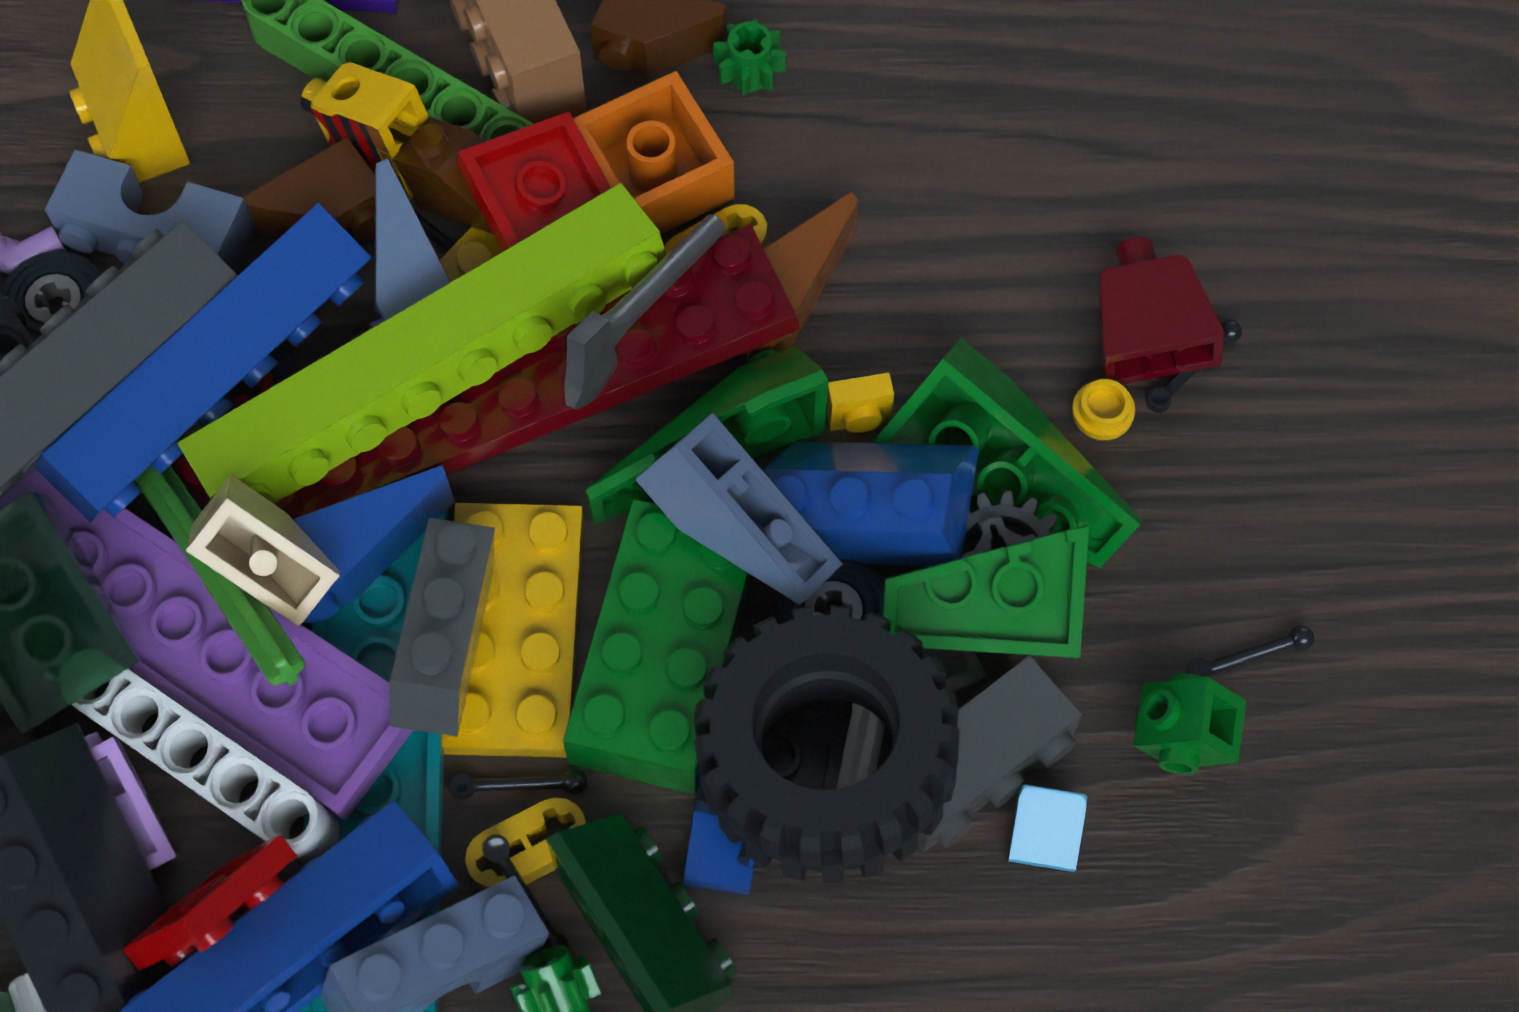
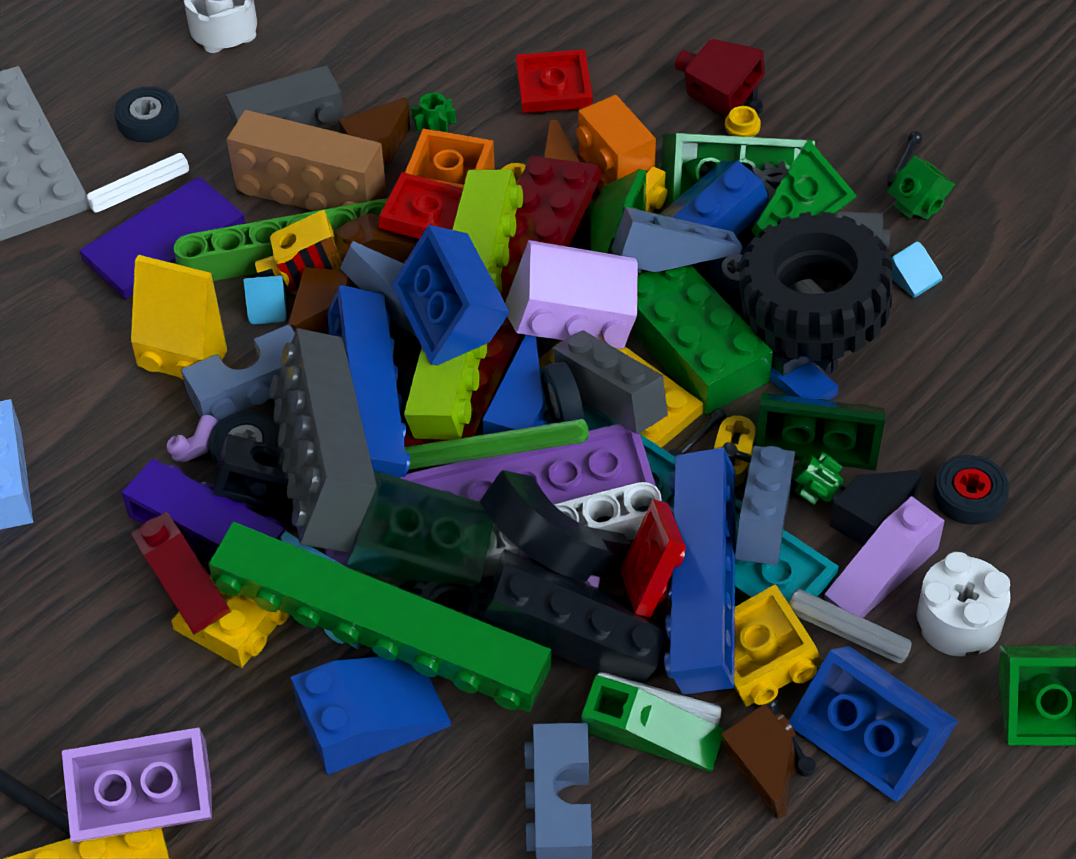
camera: 45 degrees left, 15 degrees down
(126, 755) = (548, 534): none -> black arch
(261, 551) = (502, 407): tan slope -> none
(282, 136) = (265, 300): none -> medium azure slope
(374, 593) = (561, 393): none -> black bush
(377, 340) = (449, 295): none -> blue slope
(534, 474) = (573, 291): none -> lavender slope
(592, 343) = (535, 200): flat silver piece -> none
(870, 301) = (614, 140): none -> orange brick
(948, 136) = (553, 81): none -> red plate

